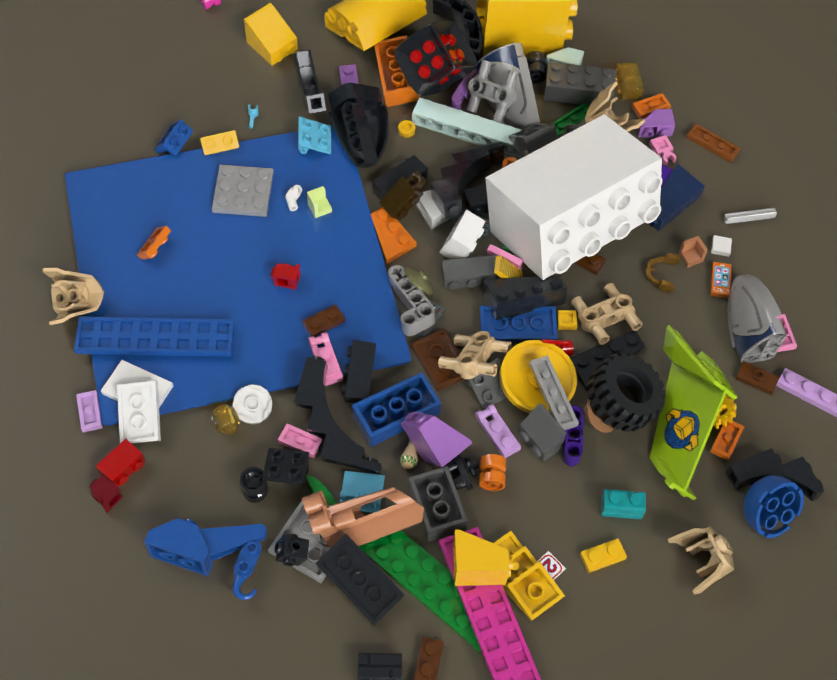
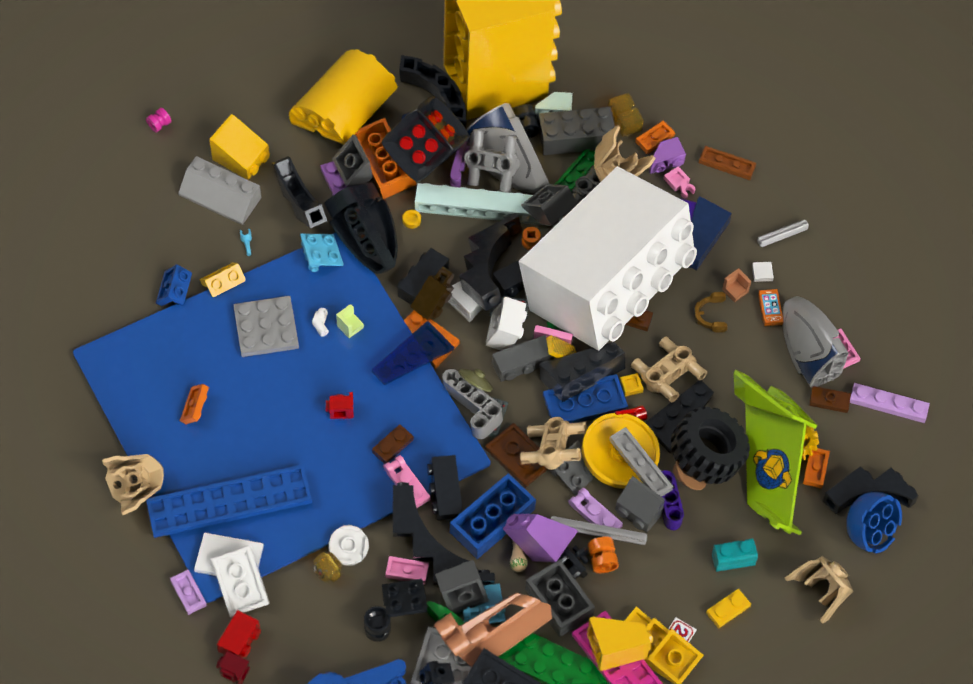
camera: 15 degrees left, 0 degrees up
(242, 67) = (219, 190): none -> light grey slope
(344, 469) = (462, 587): none -> dark grey slope
(366, 67) = (353, 163): none -> dark grey slope
(369, 243) = (417, 350): none -> clear blue wing
(499, 449) = (604, 531): none -> light grey axle

